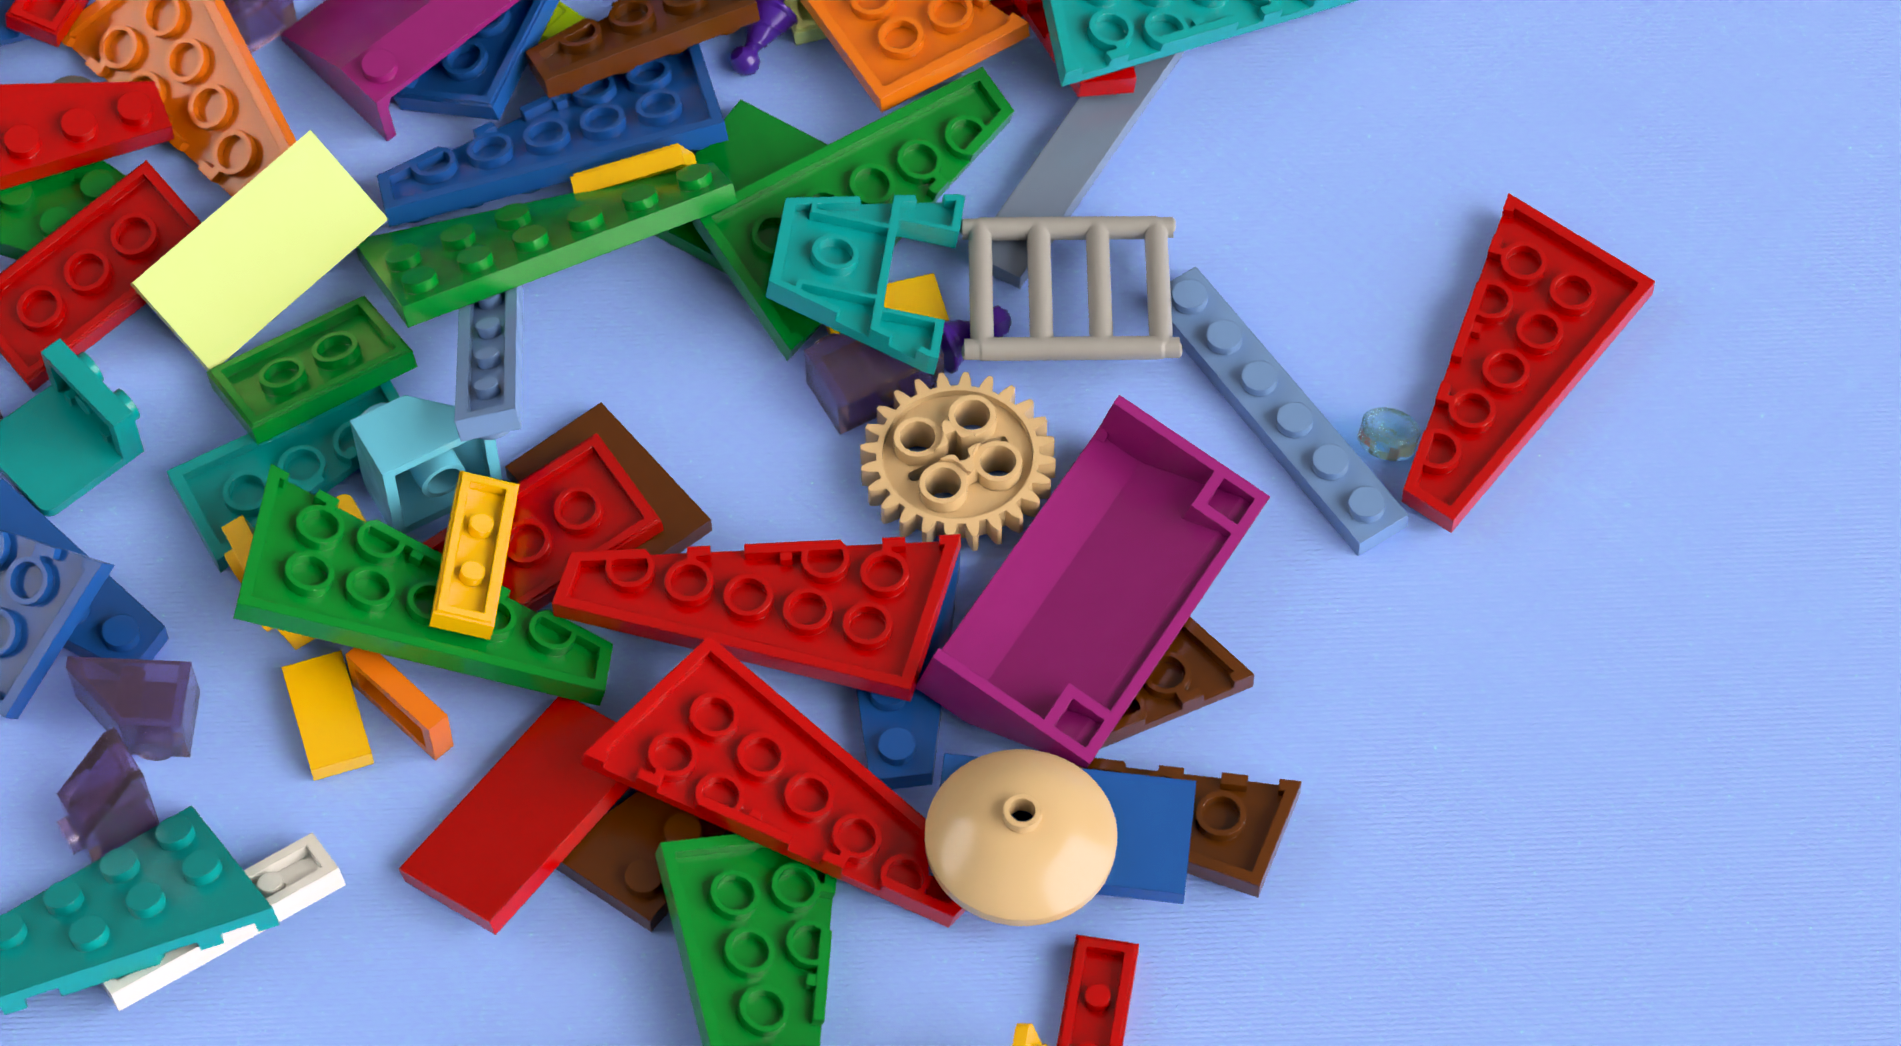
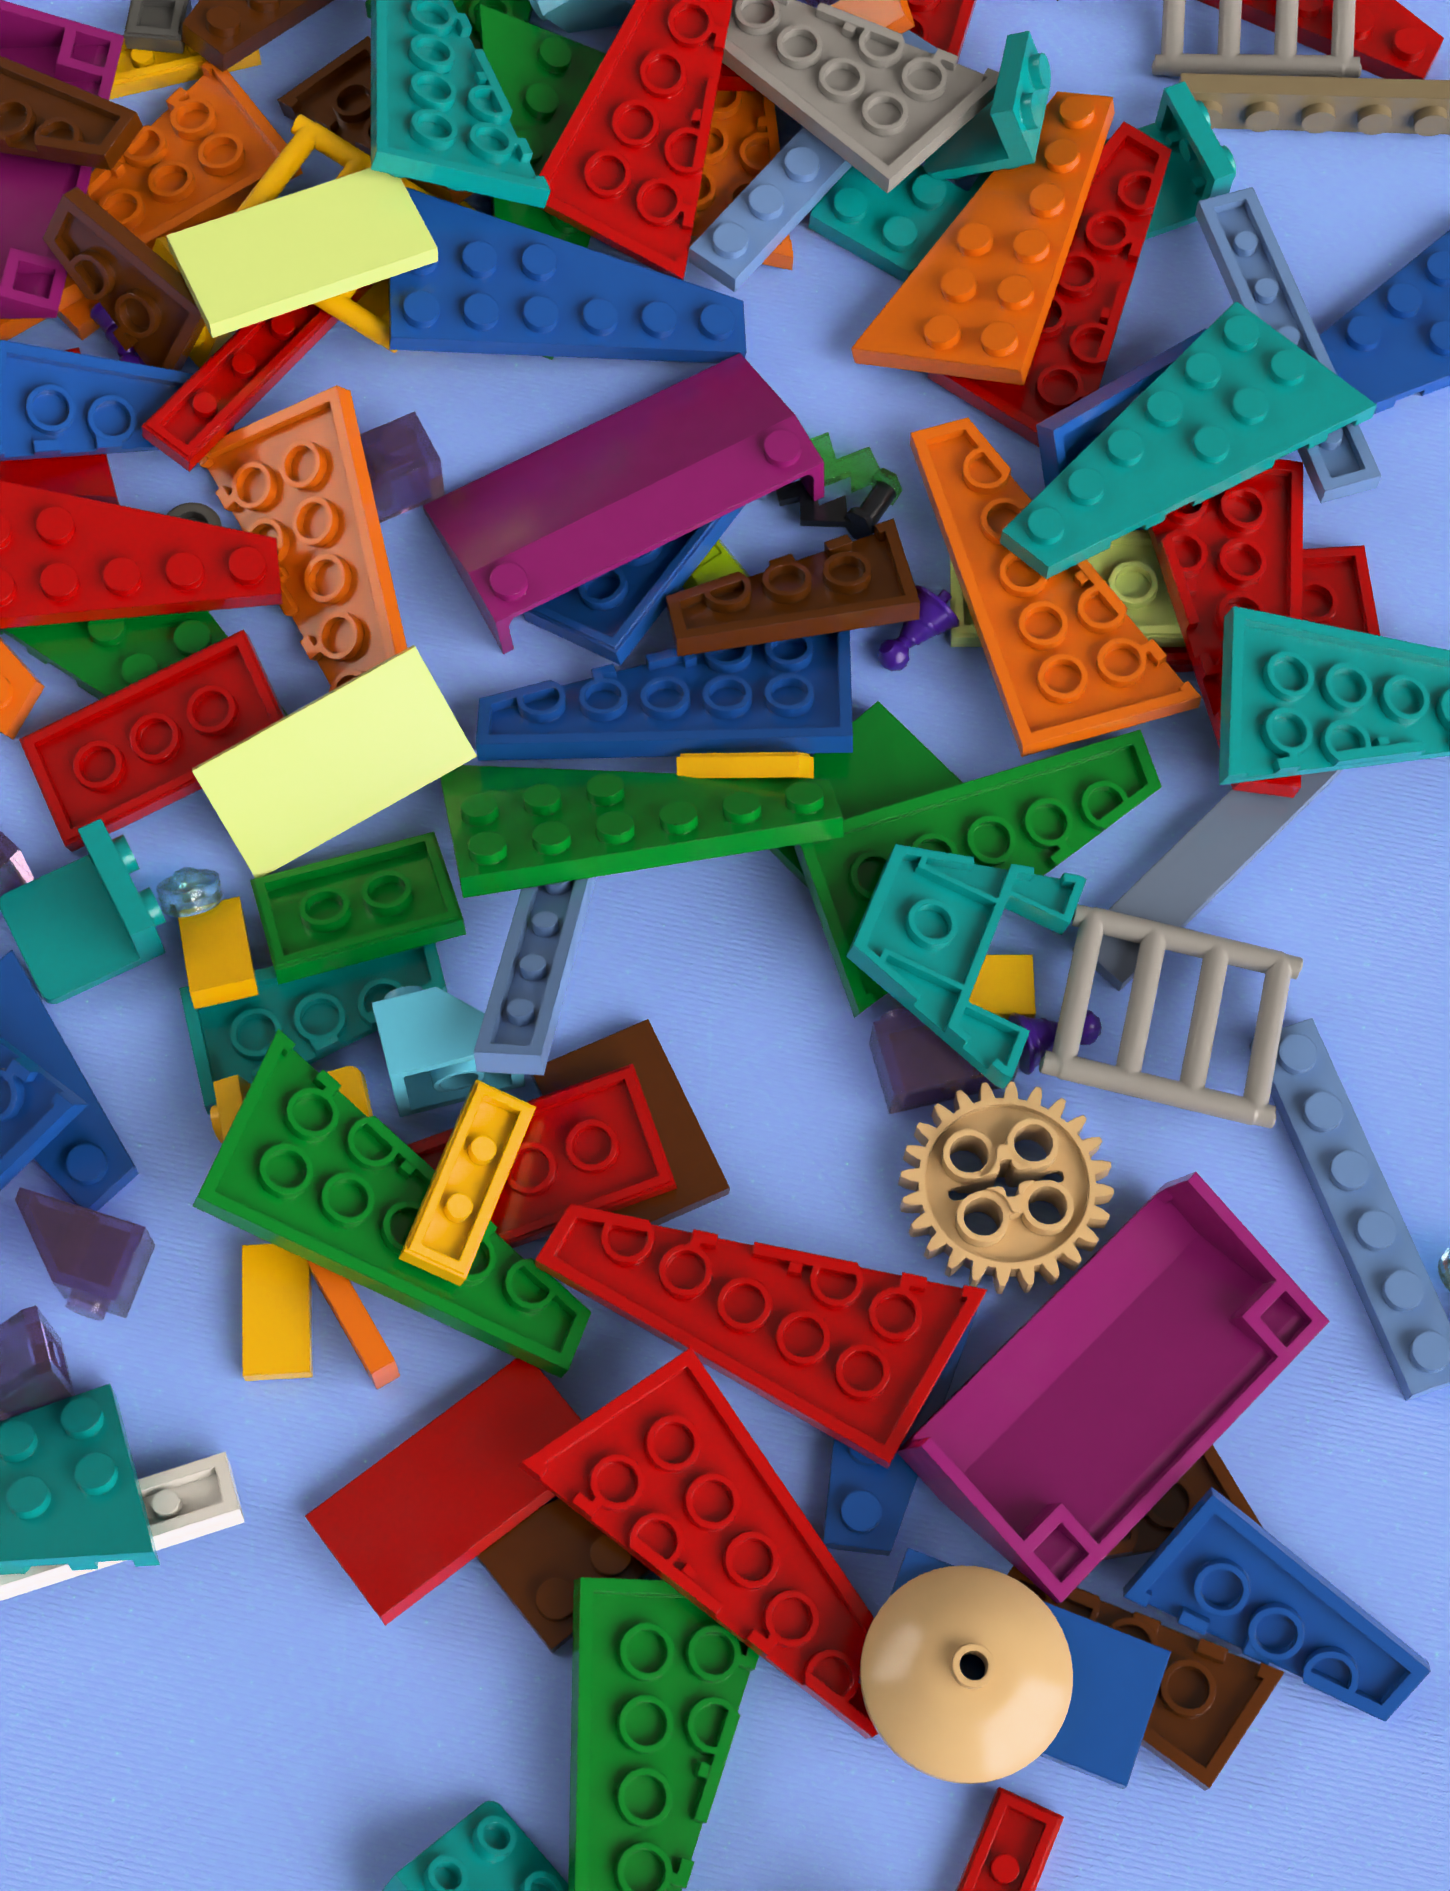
camera: 10 degrees right, 10 degrees up
(155, 391) = (189, 892): none -> clear light blue tile
(193, 434) = (218, 955): none -> yellow tile
(1267, 728) = (1252, 1591): none -> blue wing

